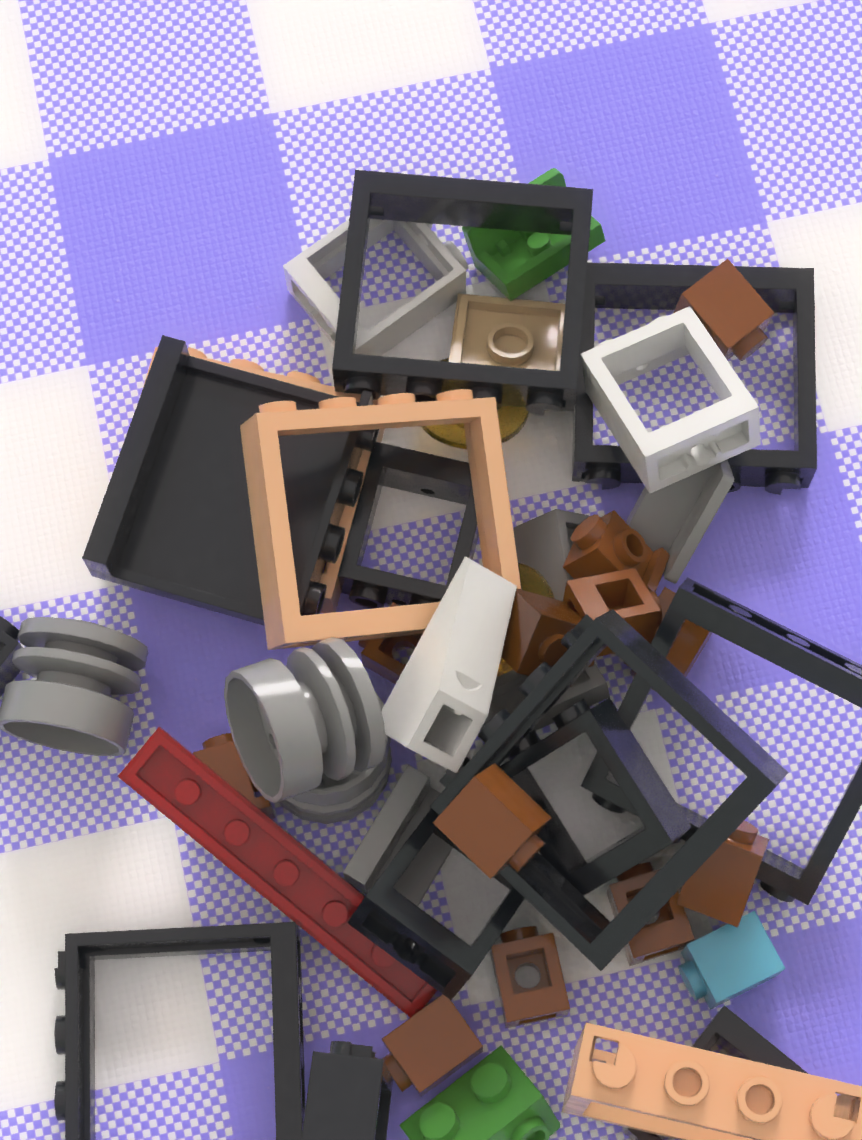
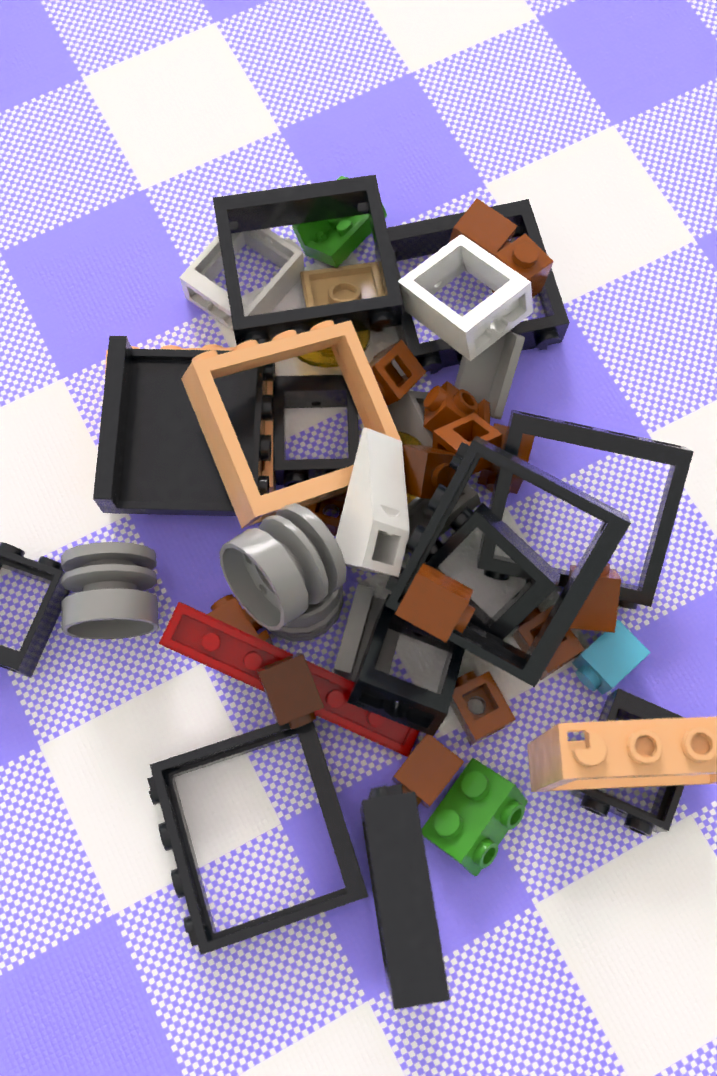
camera: 20 degrees left, 0 degrees up
(273, 887) = (290, 691): none -> reddish brown brick
(543, 479) = (390, 382): none -> dark orange brick
(768, 372) = (527, 260): none -> dark orange brick

